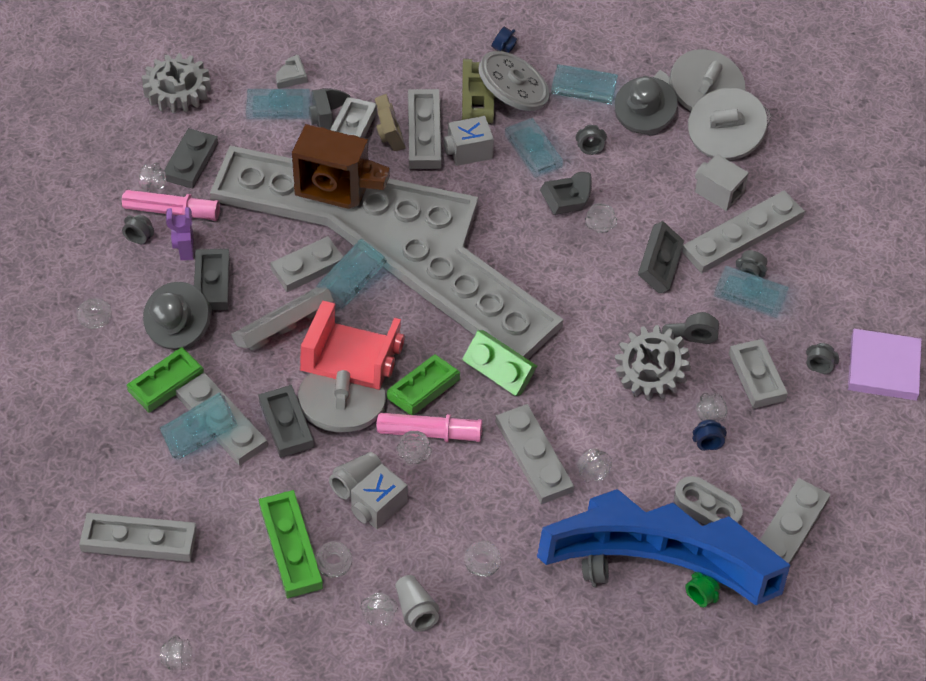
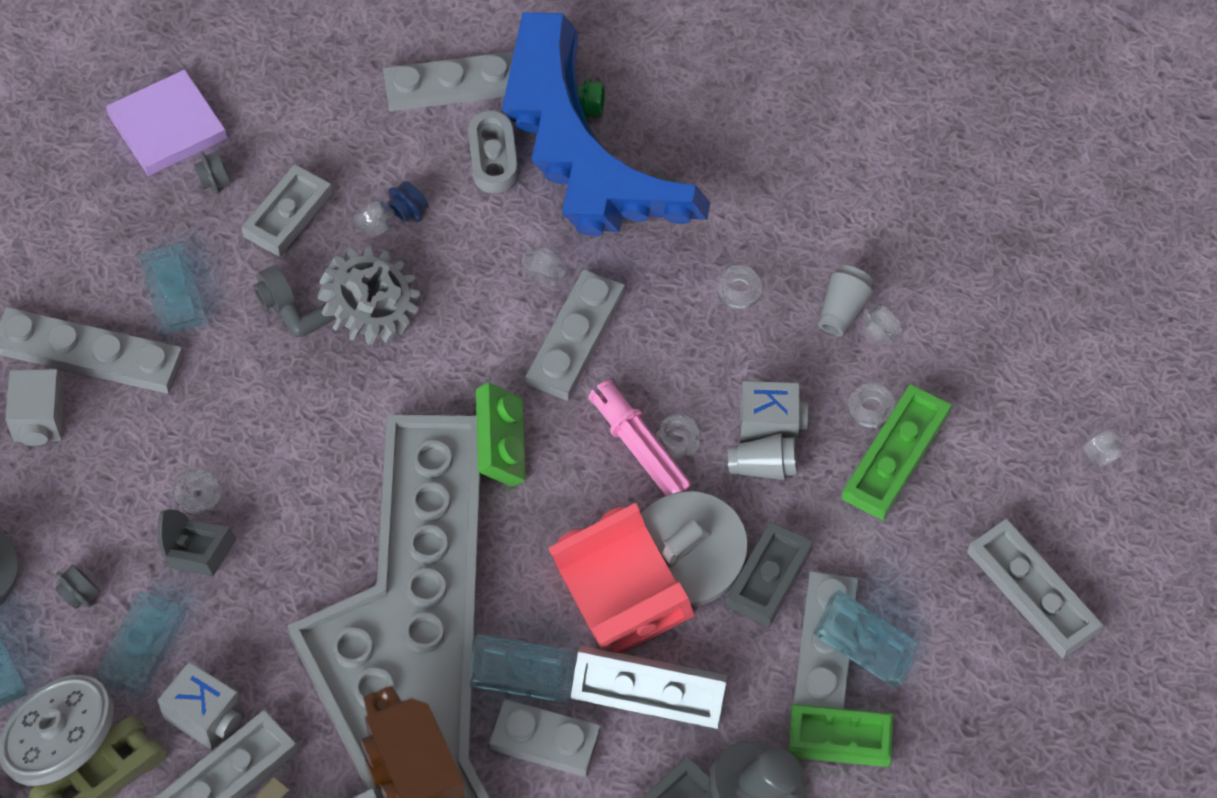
camera: 130 degrees left, 5 degrees up
(423, 385) = (595, 484): bright green plate -> none
(661, 257) = (222, 385): dark grey plate -> none
(752, 263) = (137, 305): dark grey plate -> none

